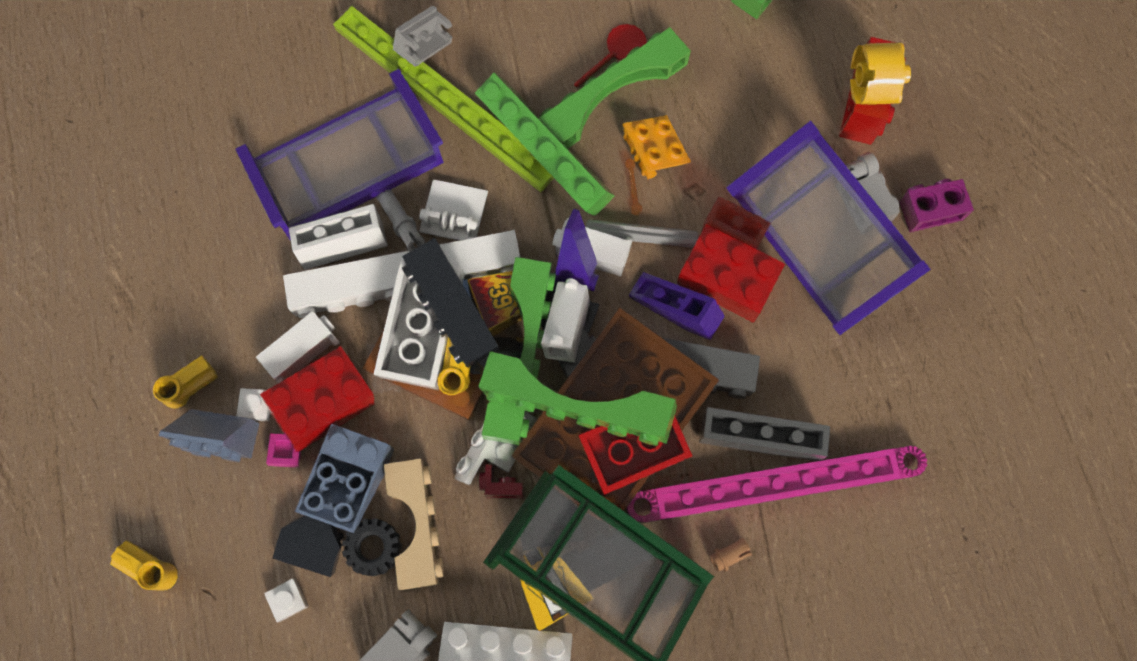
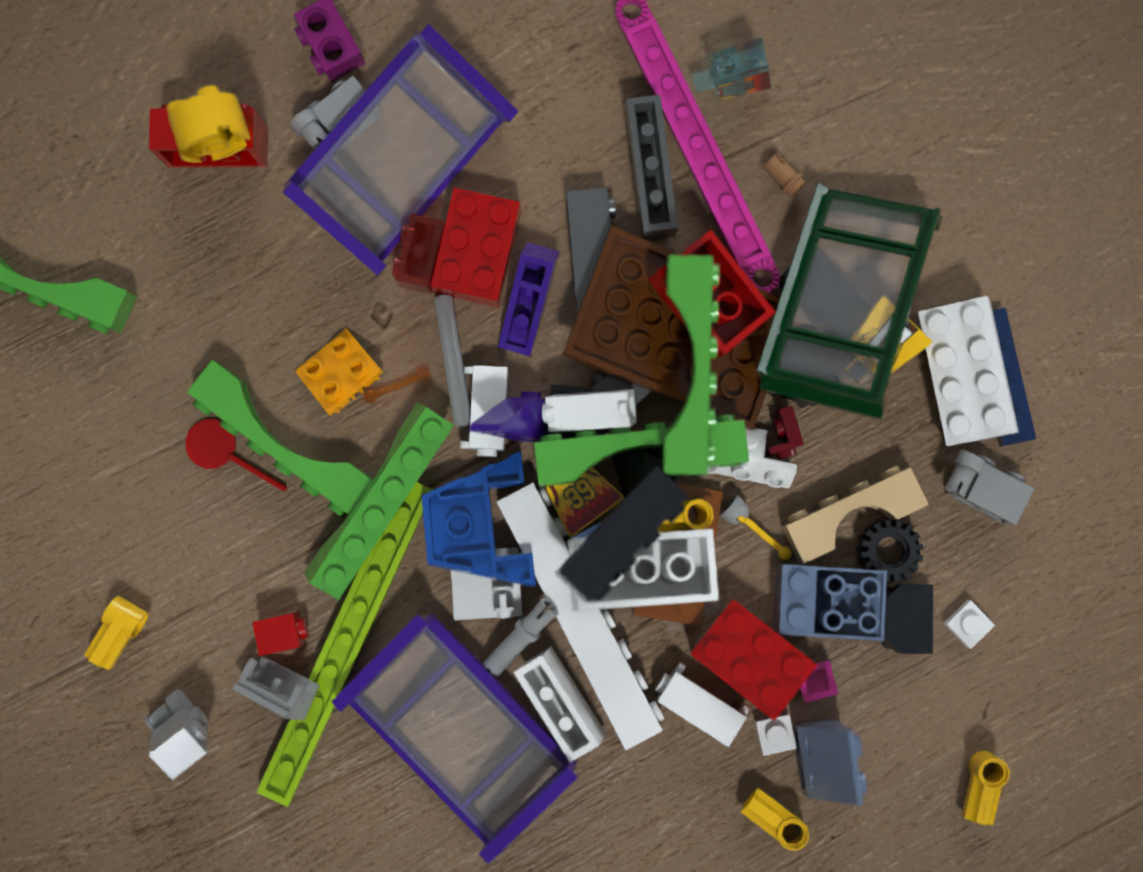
camera: 105 degrees left, 10 degrees up
(446, 425) = (737, 512): none -> hinge
(464, 51) = (280, 633): none -> red brick
(500, 198) = (461, 525): none -> blue wing
(835, 536) = (746, 66): none -> clear light blue torso

